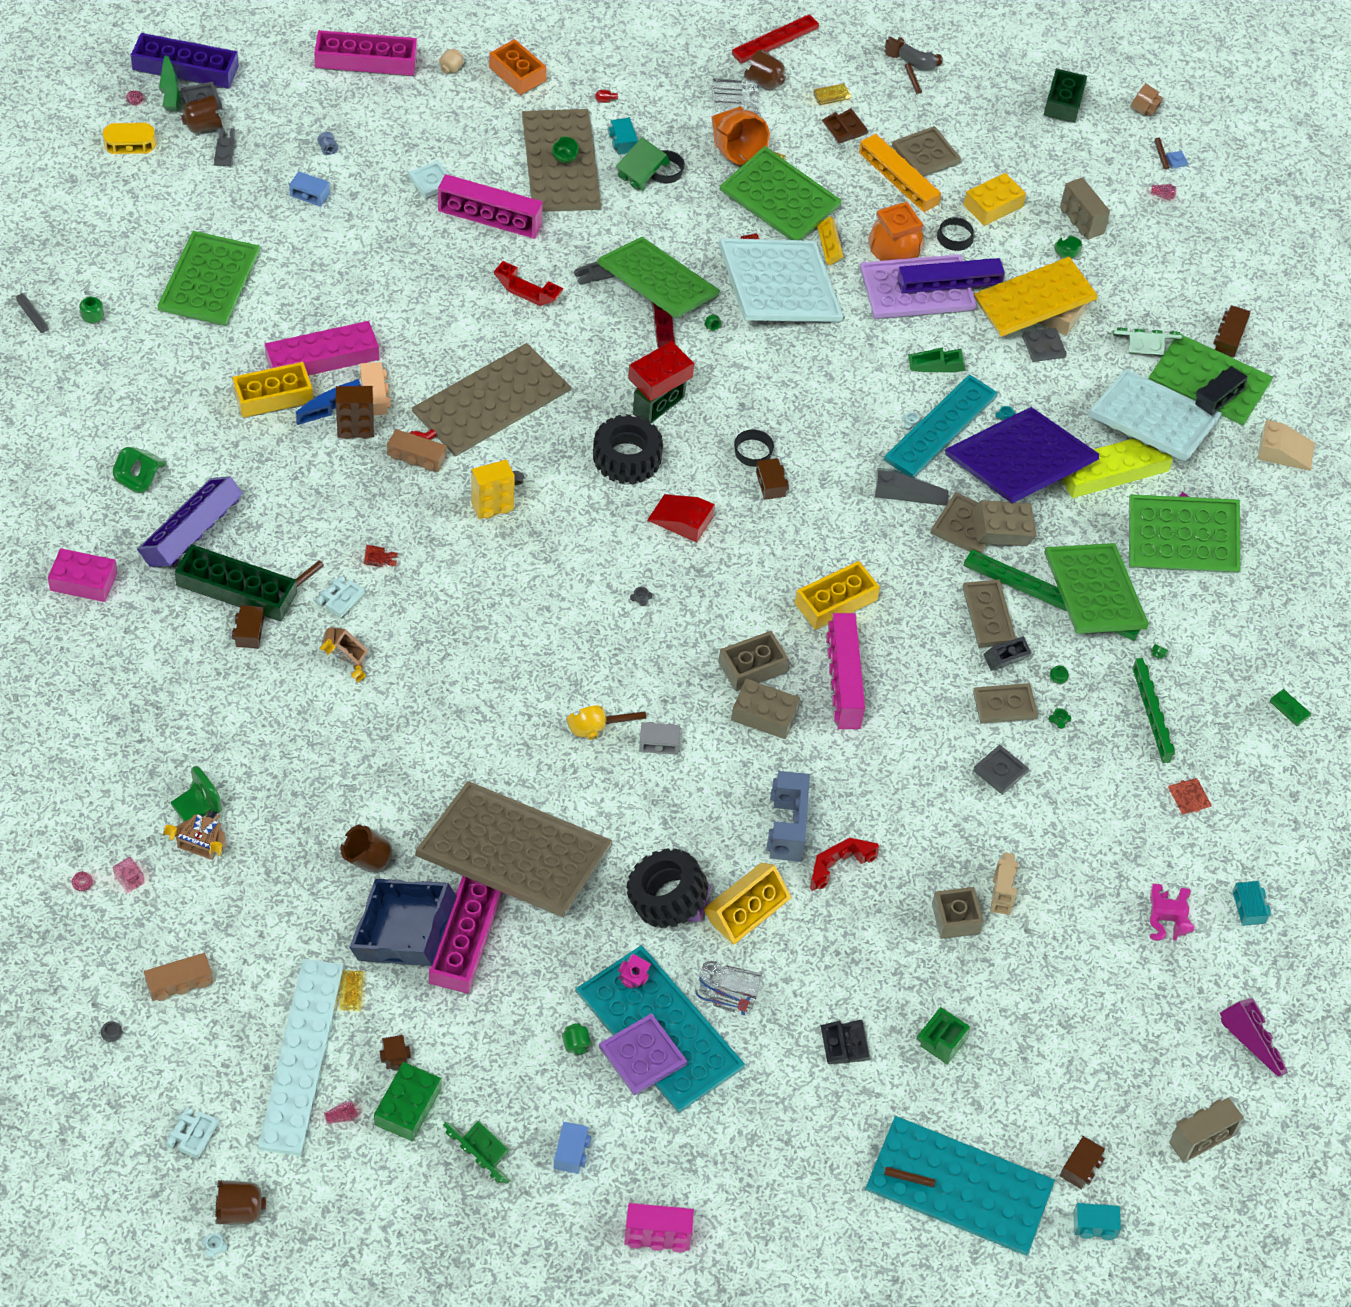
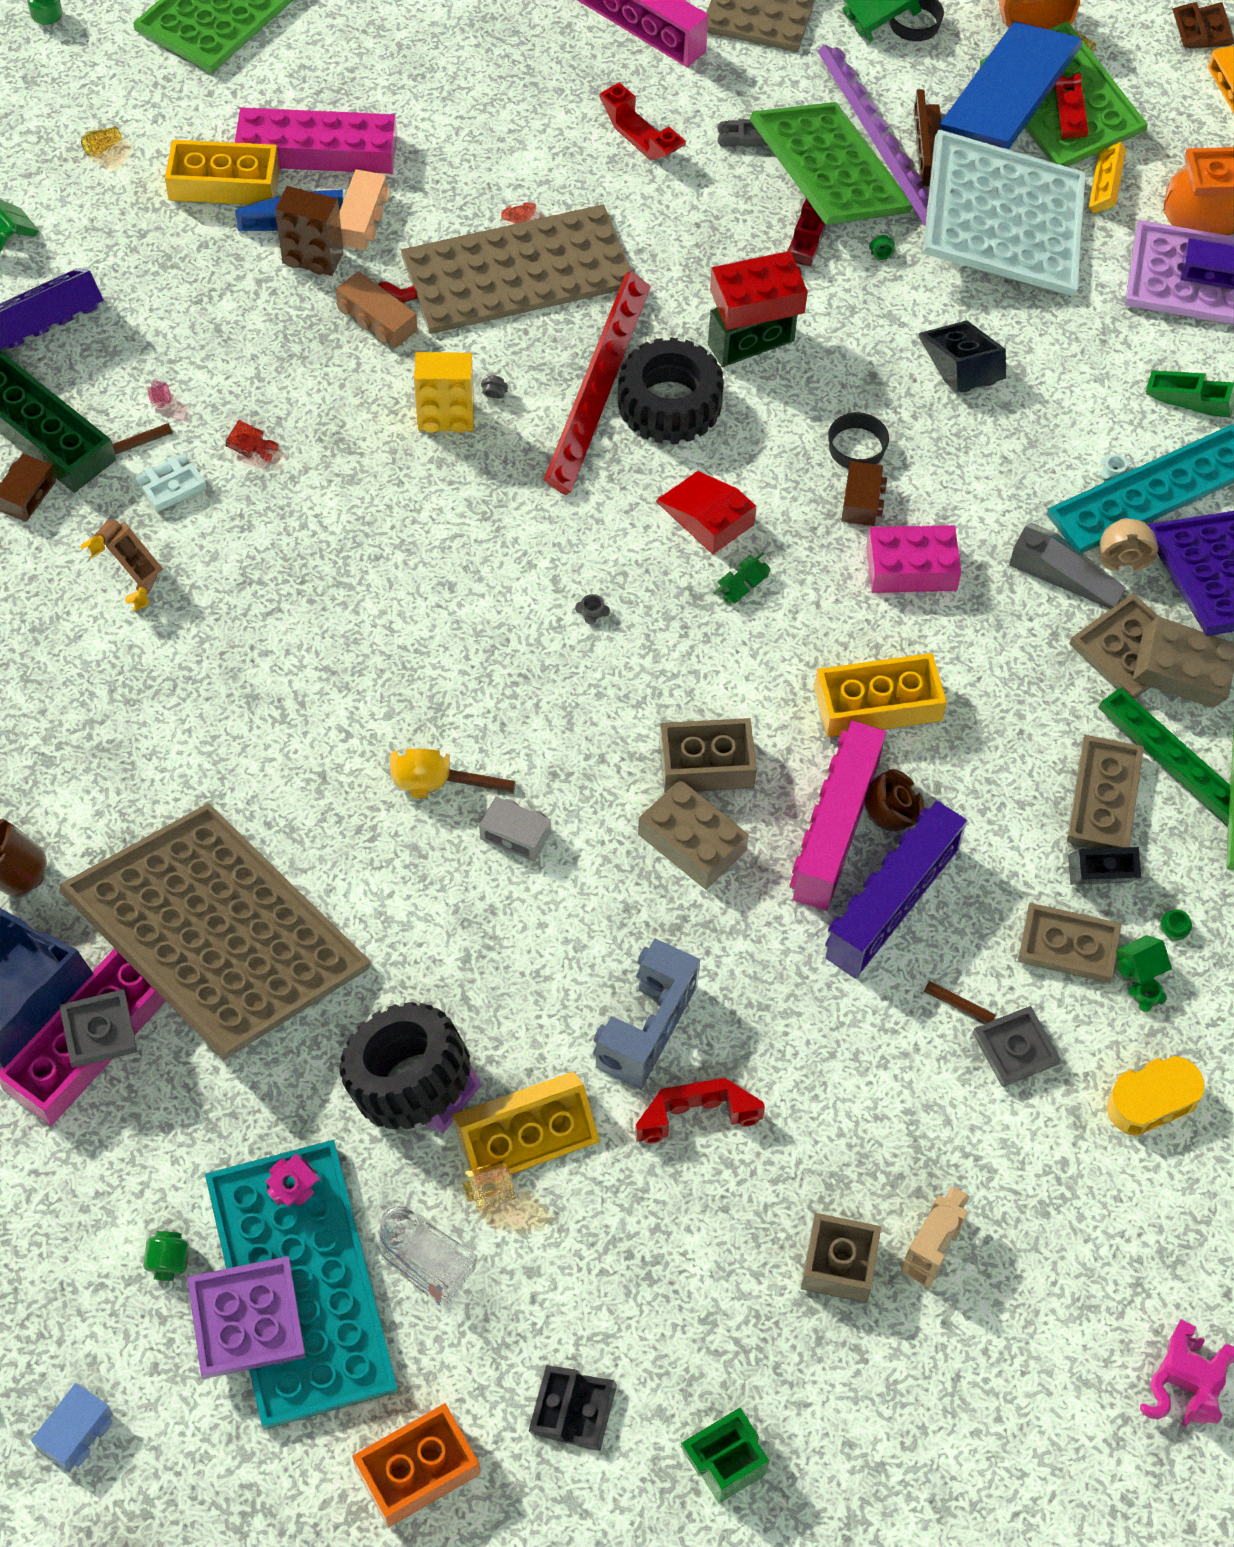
camera: 25 degrees right, 5 degrees up
(175, 391) = (99, 140): none -> clear yellow cone
(304, 543) = (159, 393): none -> clear pink plate
(475, 363) = (519, 213): none -> clear red tile
(479, 924) = (98, 1028): none -> dark grey plate
(578, 457) = (597, 384): none -> red plate
(677, 248) = (877, 129): none -> medium lavender plate
(709, 245) = (927, 123): none -> reddish brown fence
(718, 555) = (750, 571): none -> green hinge
(745, 932) = (494, 1173): none -> clear yellow brick
(748, 197) = (1011, 85): none -> blue tile
(776, 1098) = (416, 1465): none -> orange brick
(790, 201) = (1071, 107): none -> red plate
(794, 376) = (965, 355): none -> black slope
(819, 509) = (913, 559): none -> dark pink brick
(872, 655) = (892, 801): none -> reddish brown cylinder
(896, 702) = (894, 888): none -> dark purple brick
(941, 463) = (1128, 544): none -> tan cylinder
(958, 756) = (959, 1002): none -> reddish brown piece
(1050, 698) = (1143, 959): none -> green brick
(1087, 771) = (1155, 1095): none -> yellow brick

